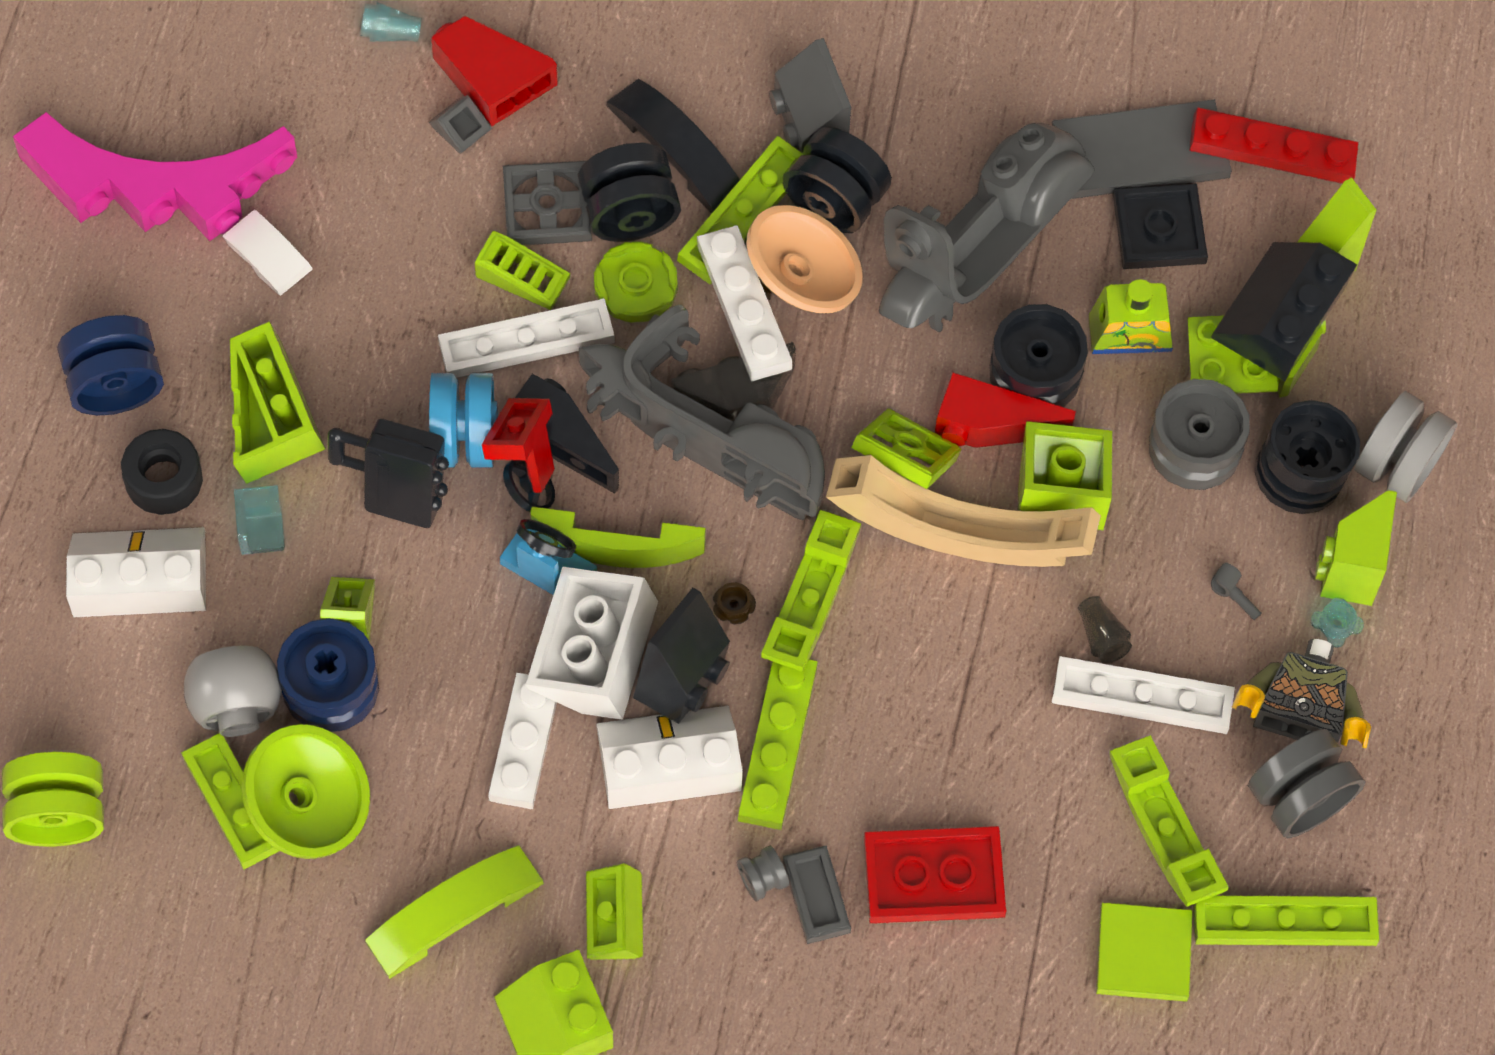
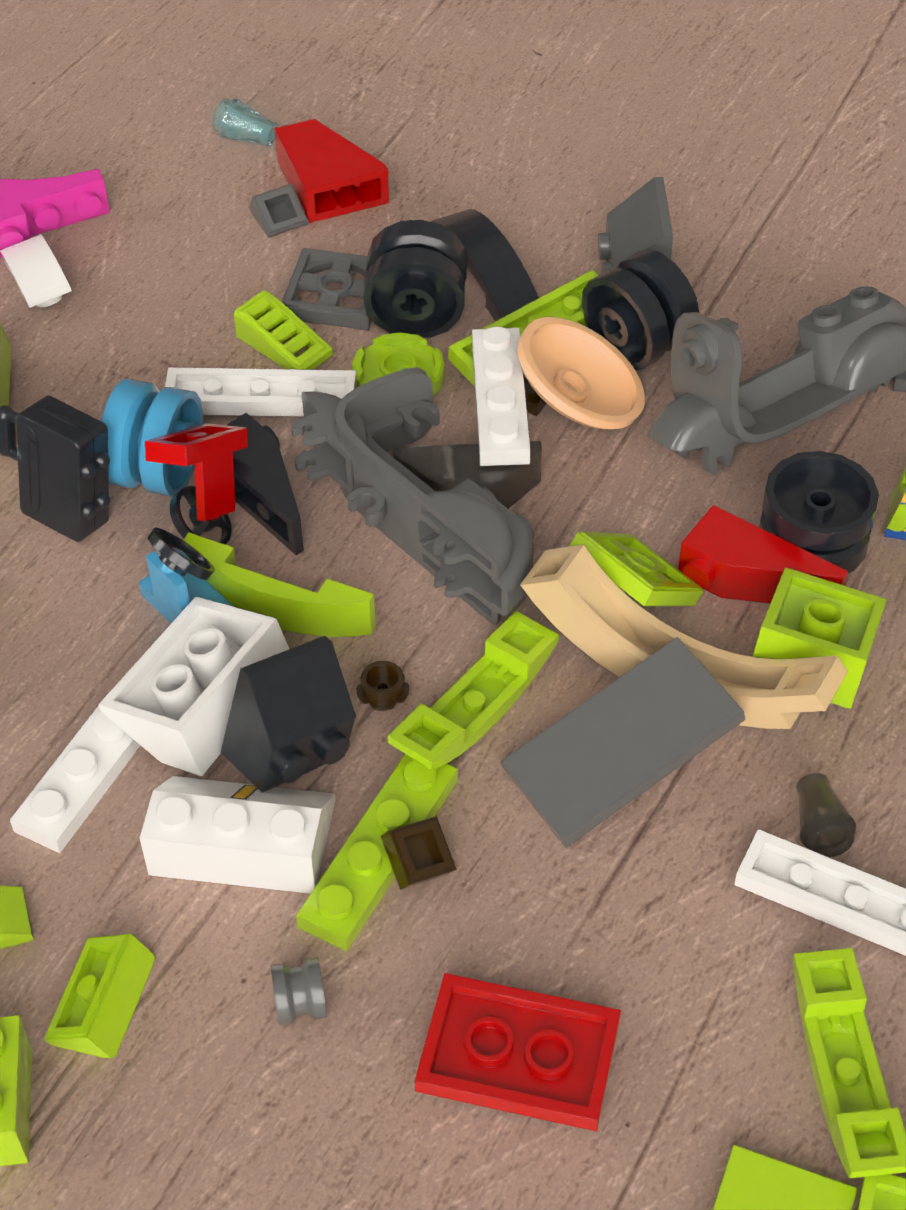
camera: 20 degrees right, 15 degrees down
(812, 741) = (418, 852): none -> dark brown tile
(816, 894) = (360, 1039): dark grey tile -> none
(939, 608) = (622, 741): none -> dark grey tile

